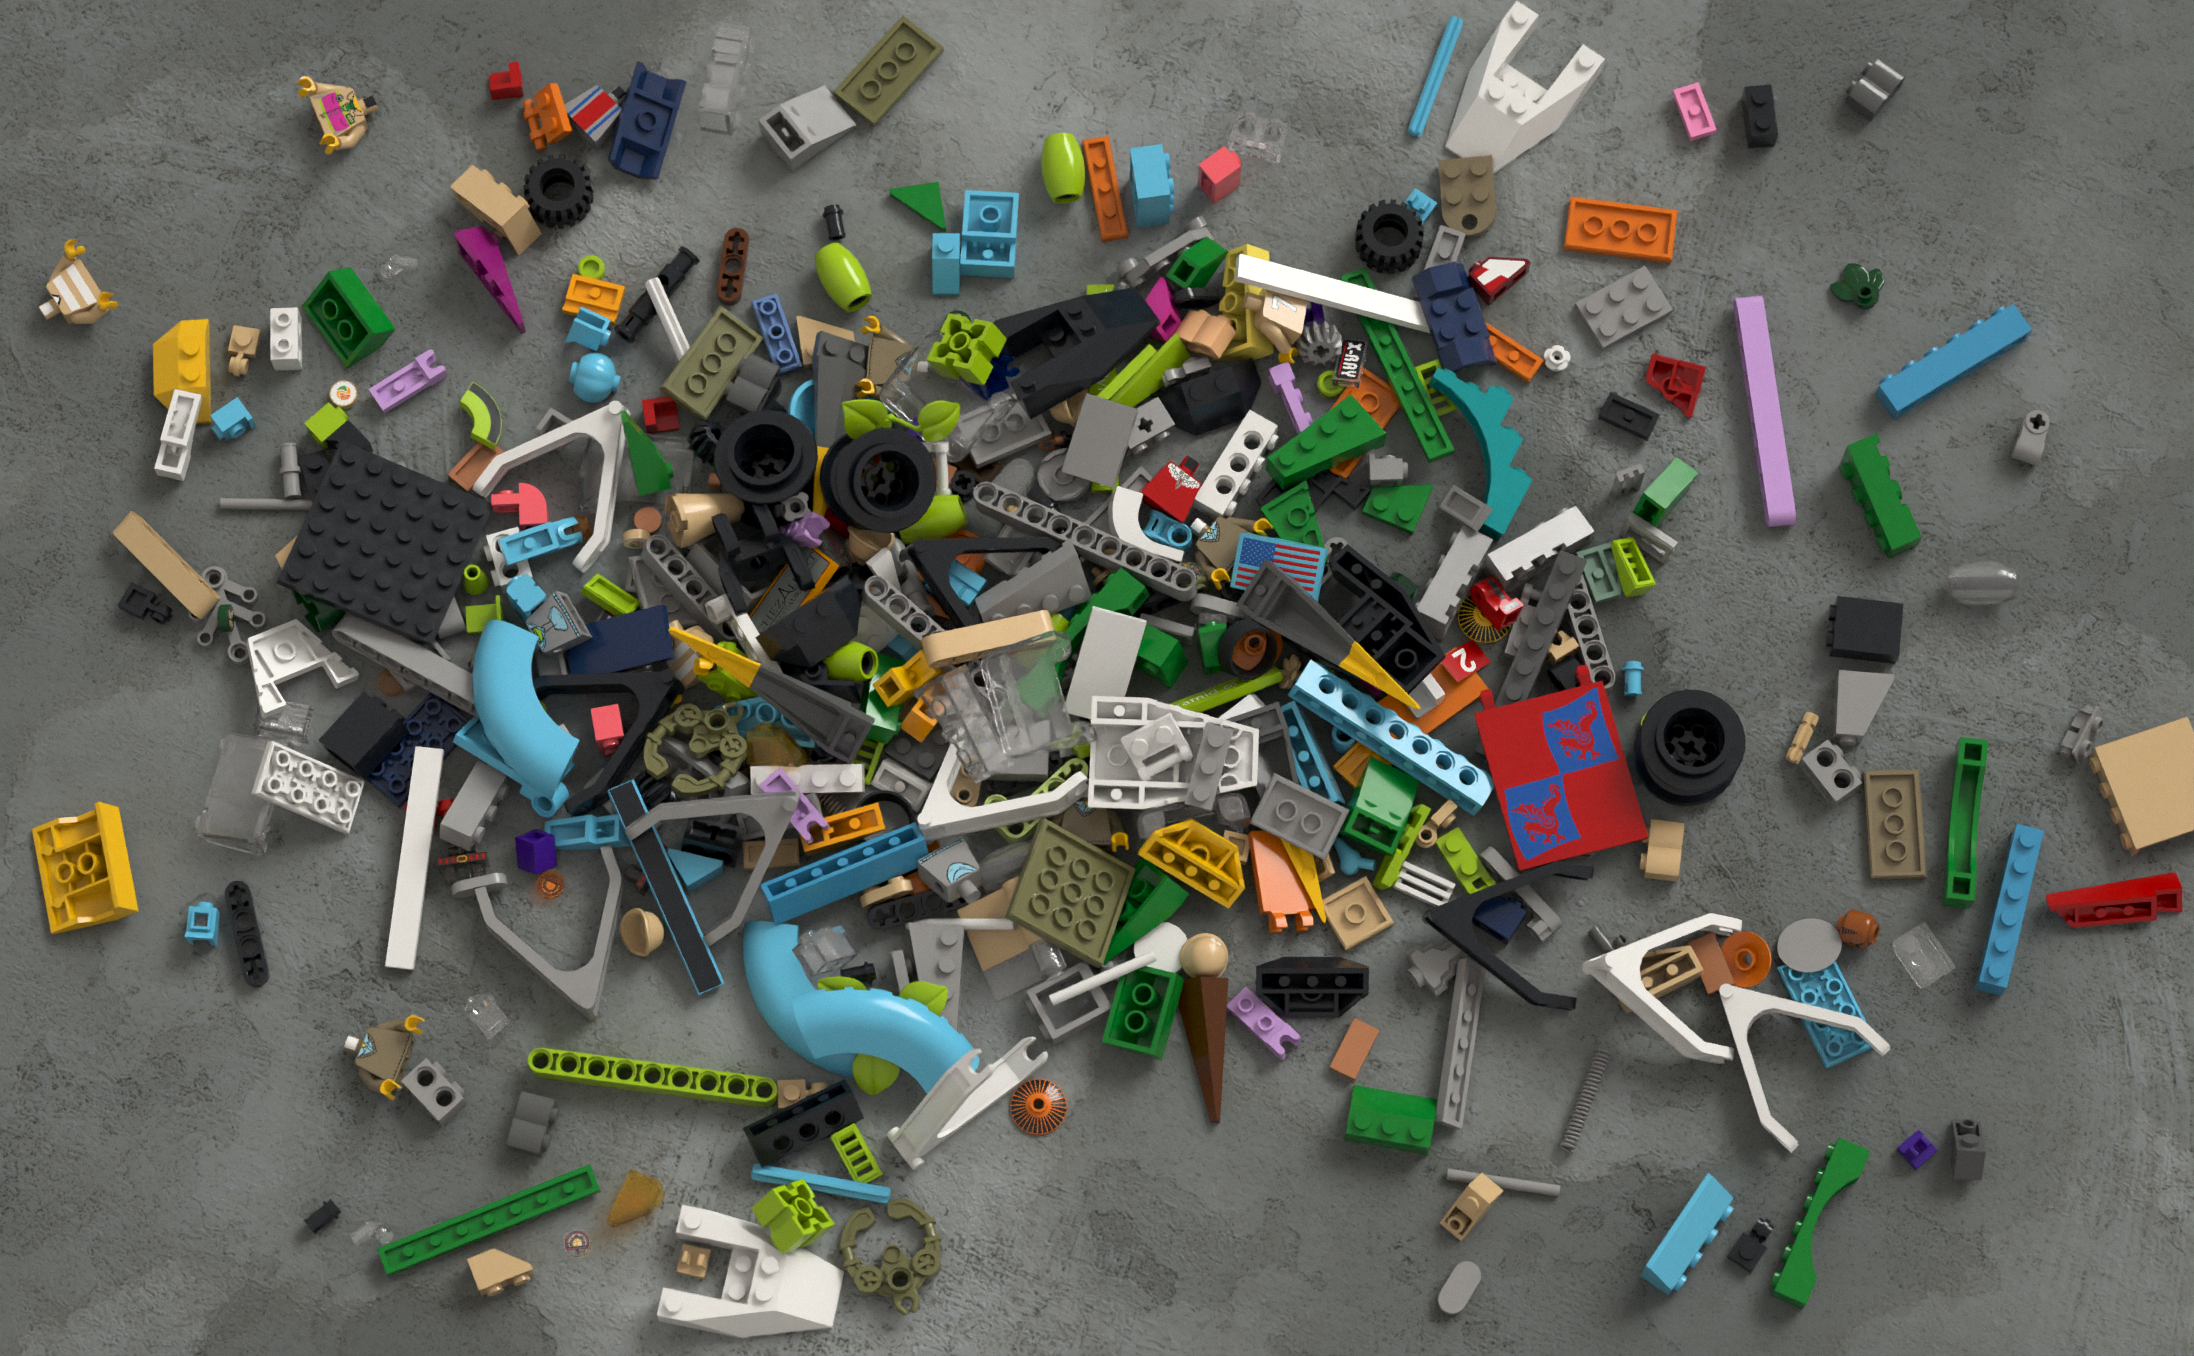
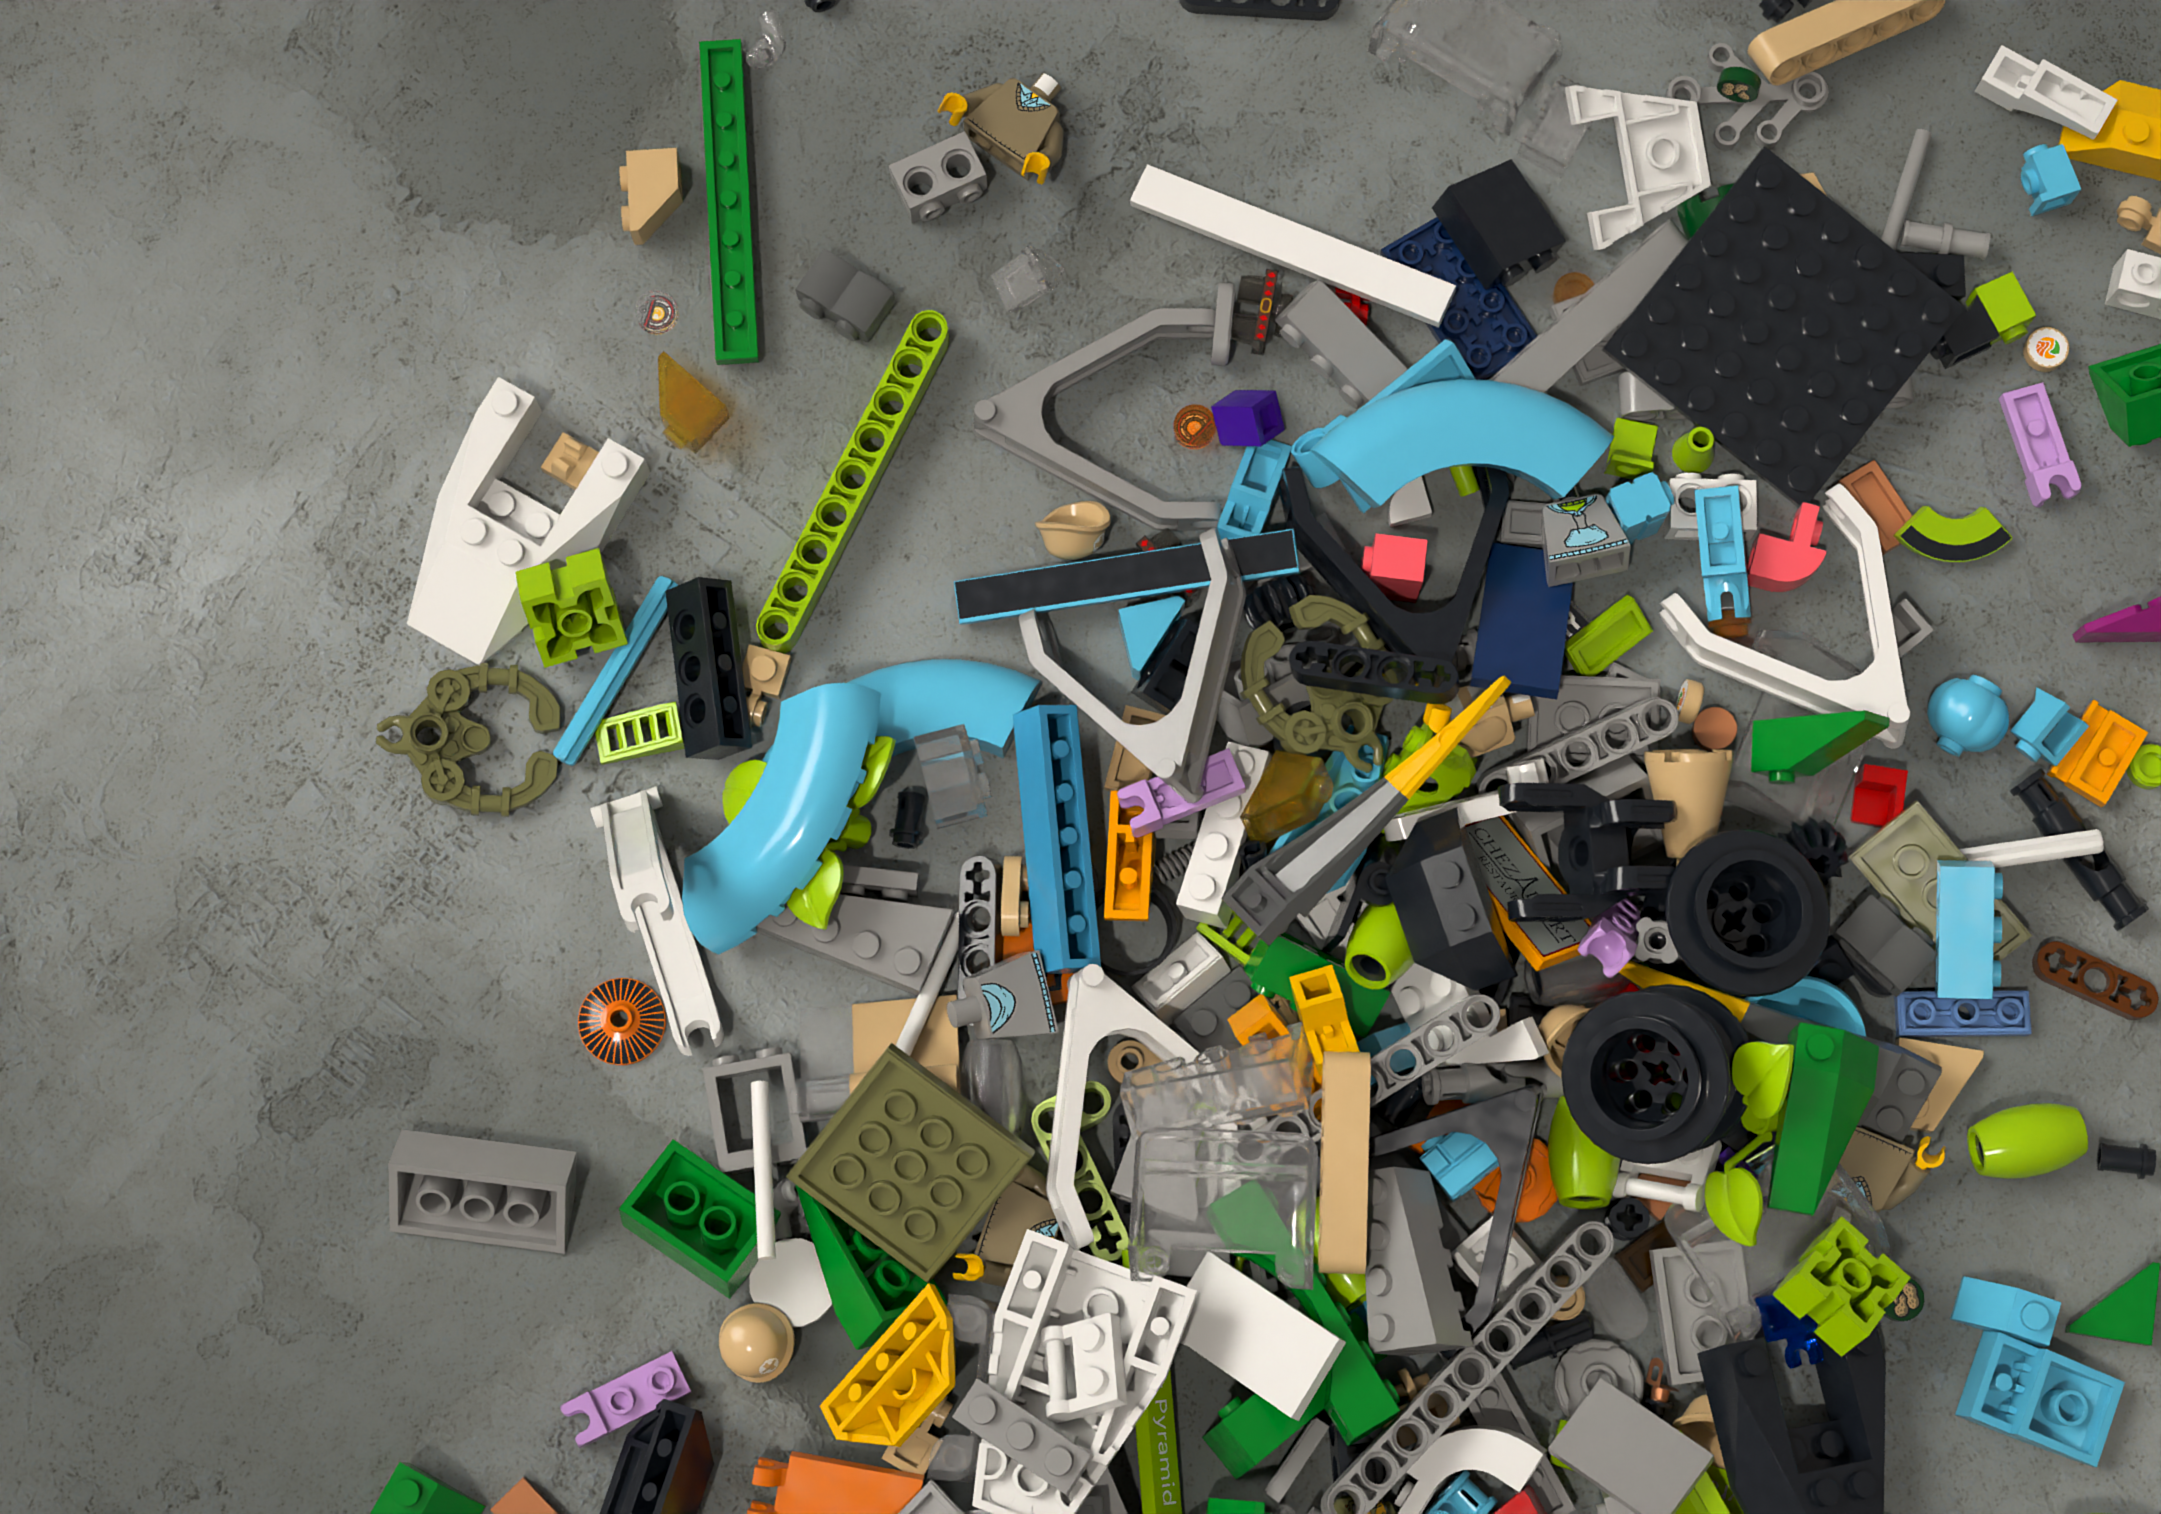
camera: 110 degrees right, 5 degrees up
(308, 787) = (1440, 118): white tile -> none
(691, 710) = (1376, 665): none -> black beam
(729, 340) = (1967, 929): none -> medium azure brick
(855, 381) = (1822, 1107): none -> green wedge
(1169, 1149) = (481, 1191): none -> light grey slope
(1204, 1018) = (661, 1311): reddish brown wedge -> none

